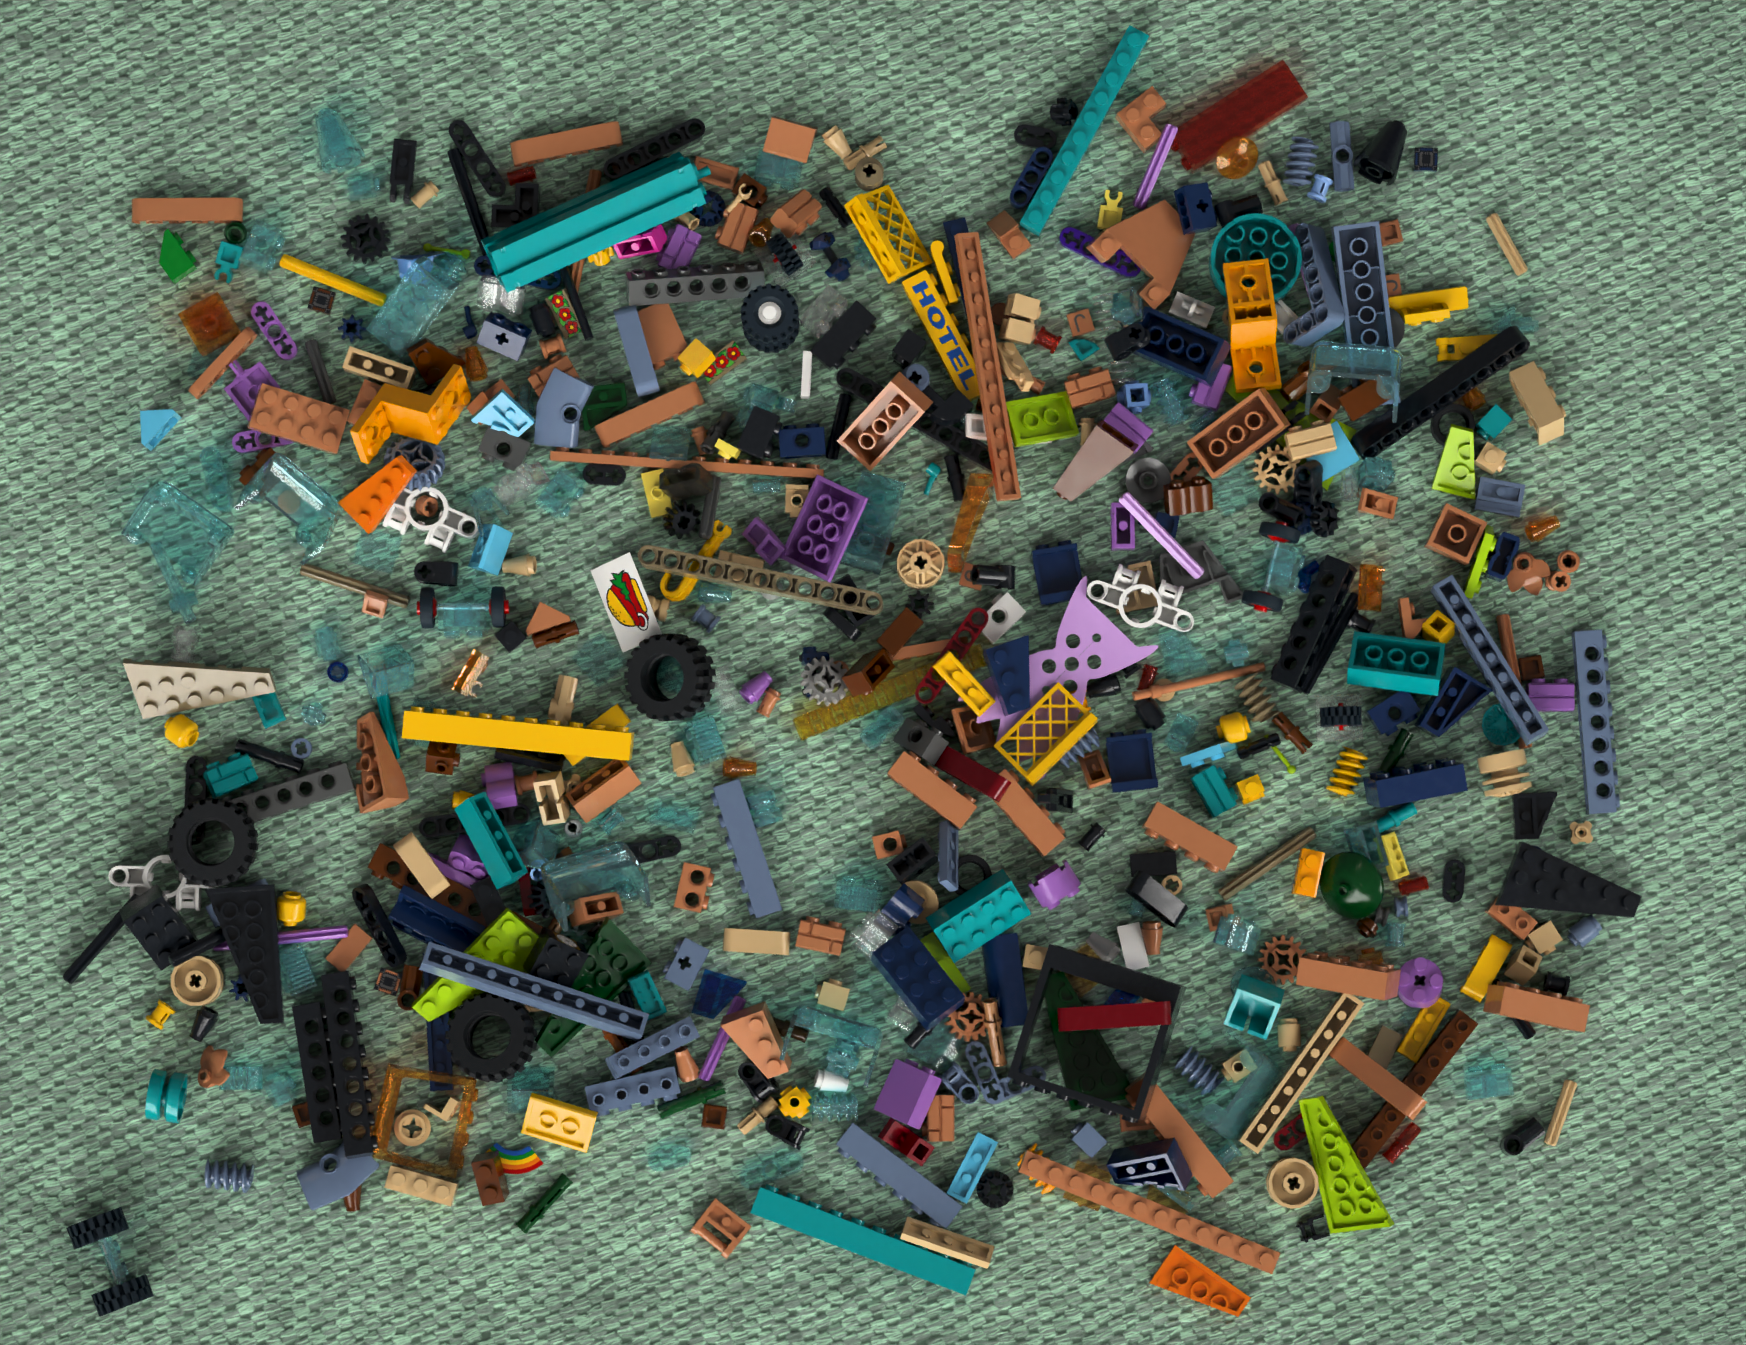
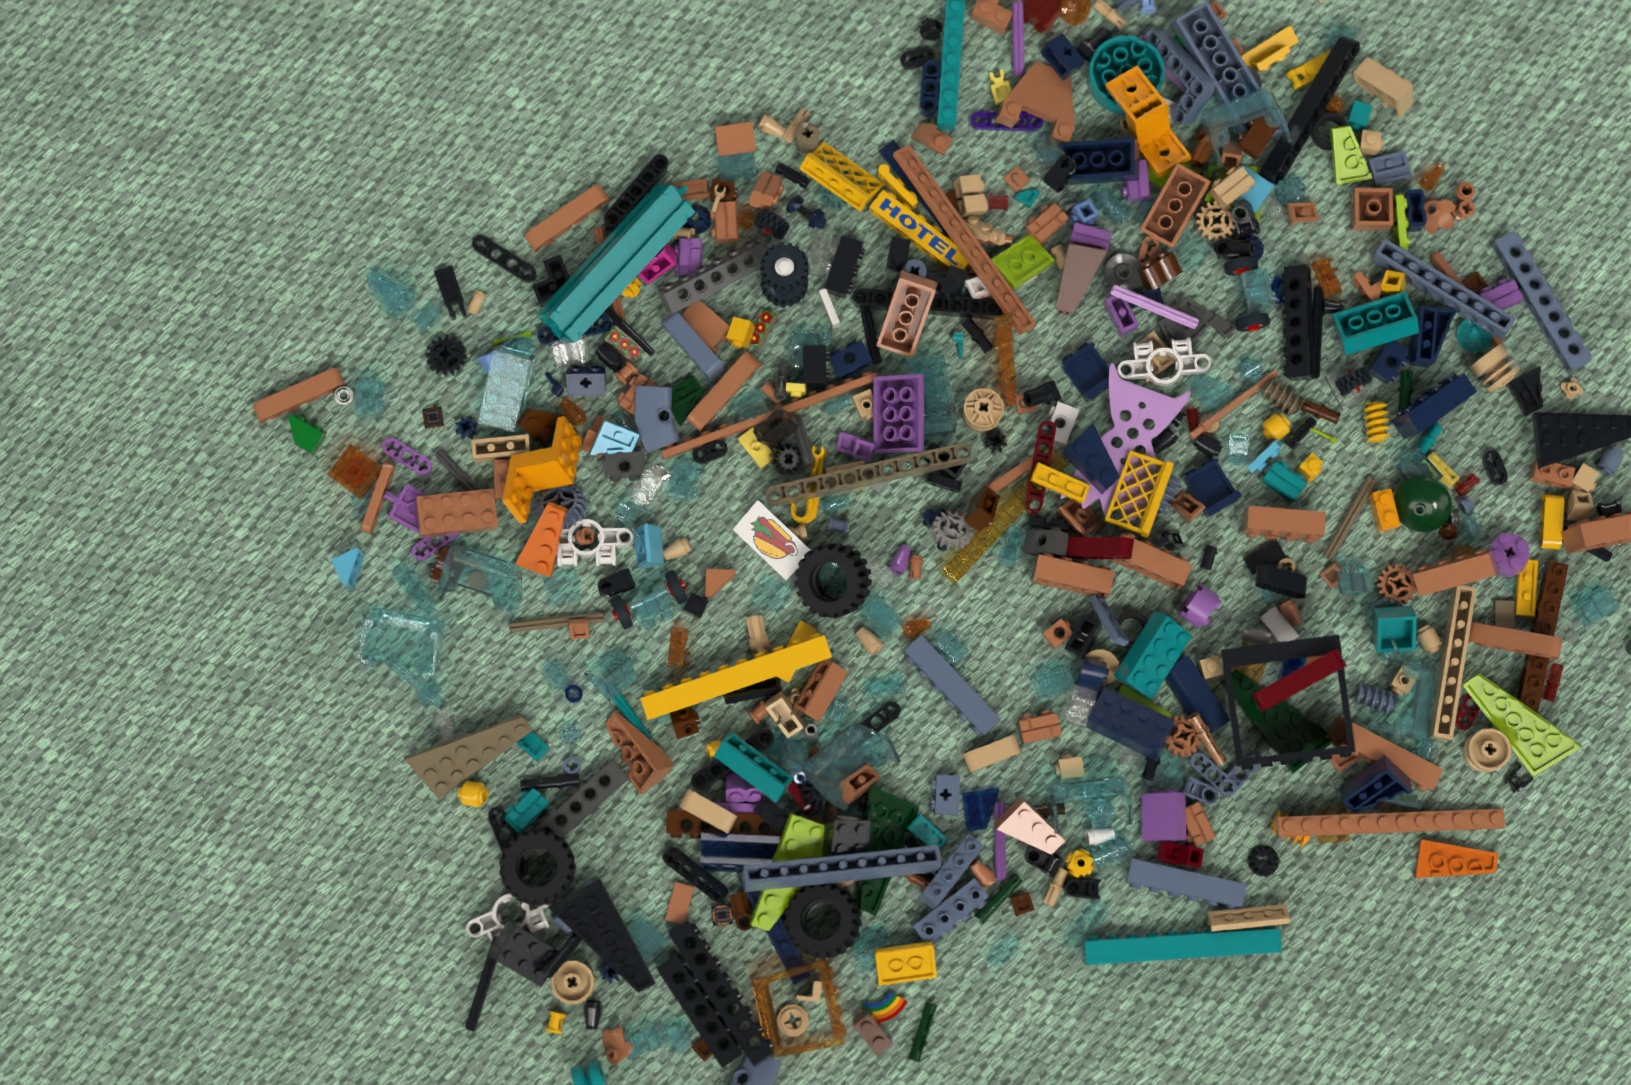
camera: 25 degrees left, 5 degrees down
(228, 257) = (347, 415): teal plate -> none
(291, 908) = (620, 892): yellow head -> none
(304, 935) = (639, 909): medium lavender axle -> none
(332, 280) = (435, 398): yellow axle -> none
(421, 1185) = (821, 1062): tan brick -> none
(468, 196) = (511, 291): black axle -> none
(500, 784) = (740, 722): medium lavender brick -> none
(522, 175) = (545, 254): clear red pin -> none
(555, 634) = (728, 589): reddish brown pin -> none
(686, 887) = (919, 735): nougat brick -> none
(726, 1222) = (1069, 981): nougat plate -> none
(899, 632) = (991, 467): reddish brown tile -> none
(972, 1167) = (1238, 851): medium azure plate -> none
(1087, 1138) = (1317, 788): sand blue brick -> none
(1191, 310) = (1095, 131): white hips -> none
(1322, 528) = (1268, 249): black gear -> none

